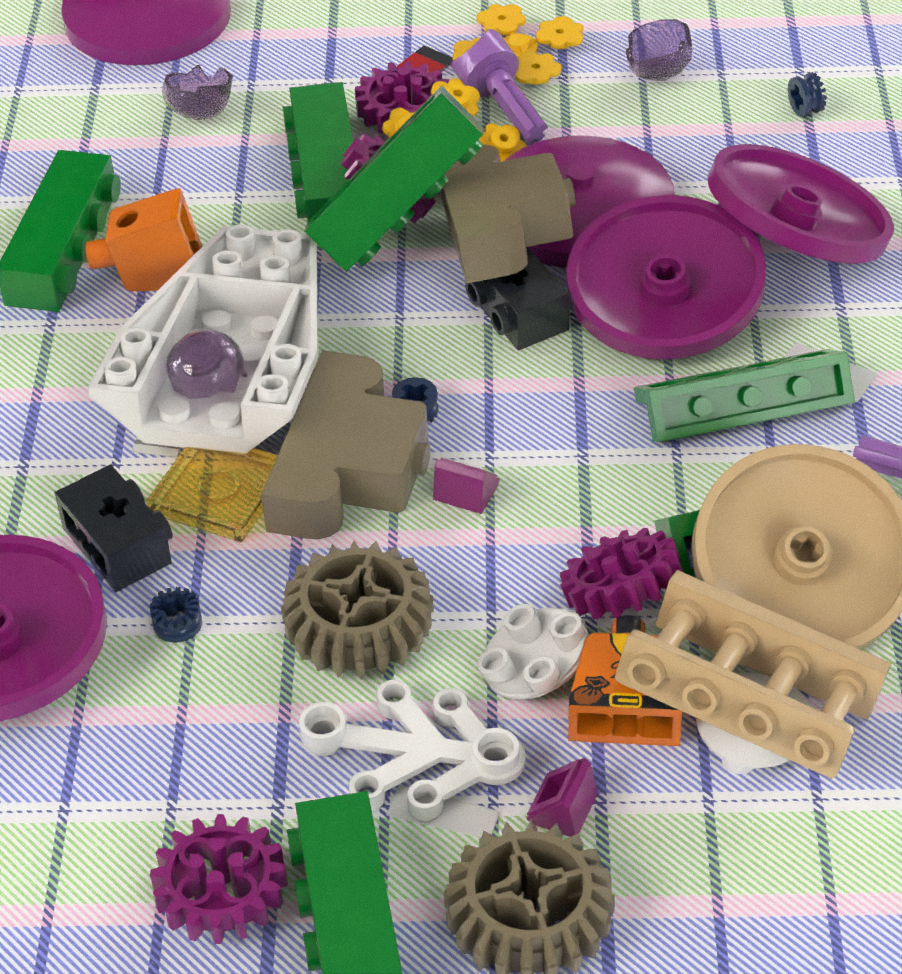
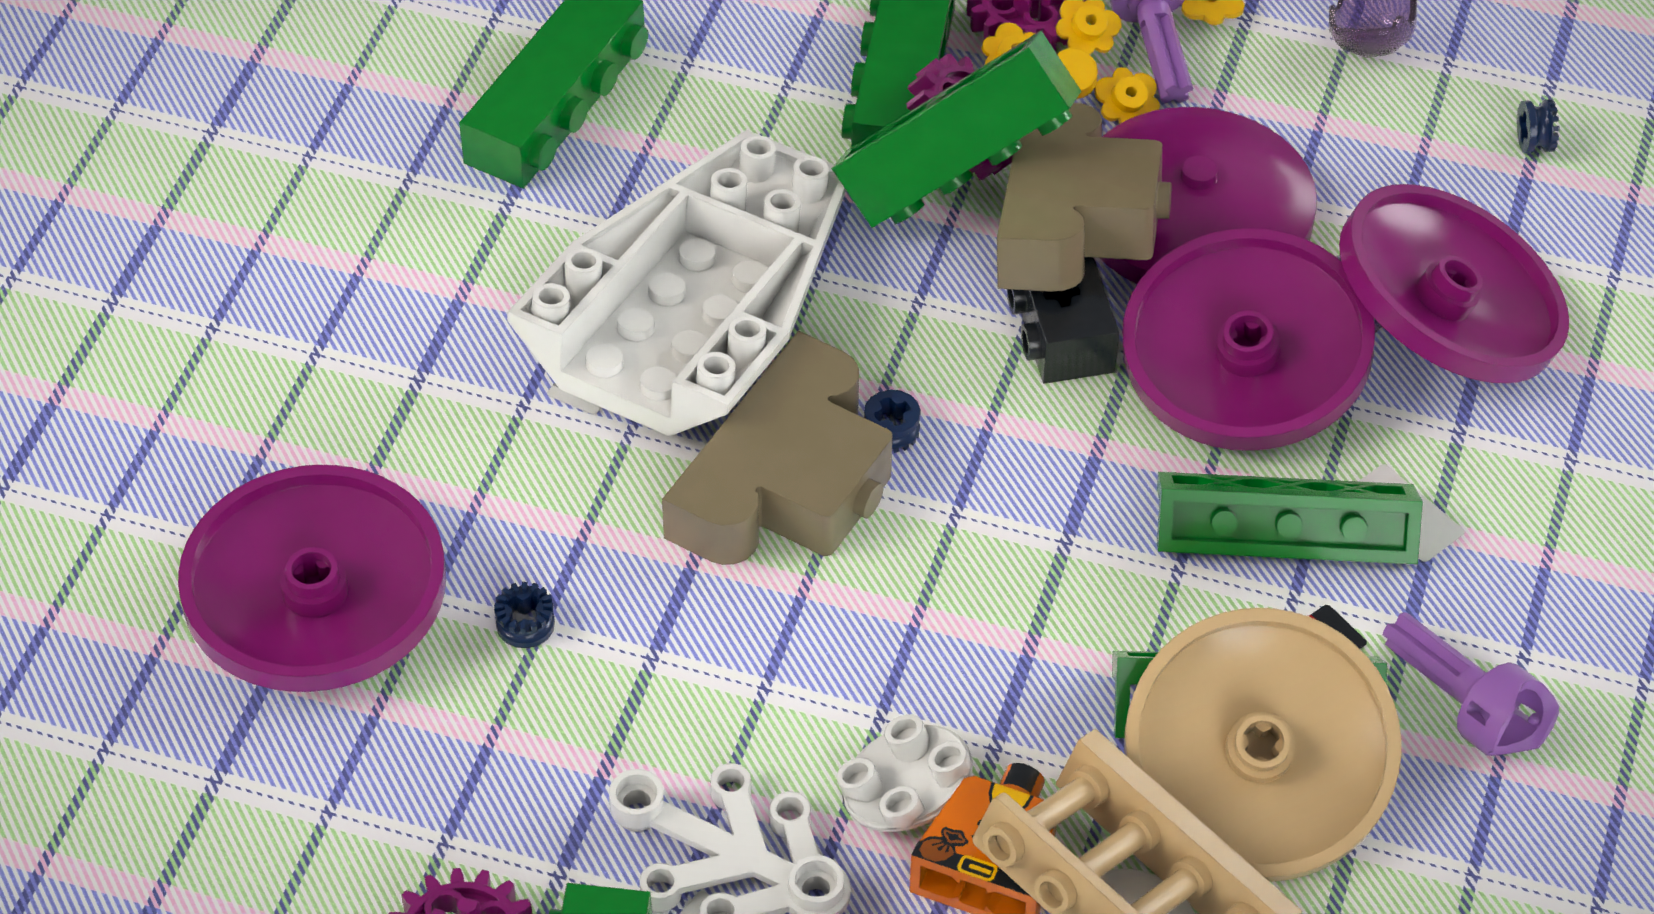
camera: 15 degrees right, 5 degrees up
(114, 527) = (490, 488): black brick -> none
(147, 241) = (648, 129): orange torso -> none
(205, 364) = (655, 314): clear purple hair -> none
(214, 490) = (619, 471): clear yellow tile -> none
(357, 609) = (733, 687): dark tan gear -> none
(463, 485) = (908, 543): magenta slope -> none
(620, 573) = (1008, 716): magenta gear -> none

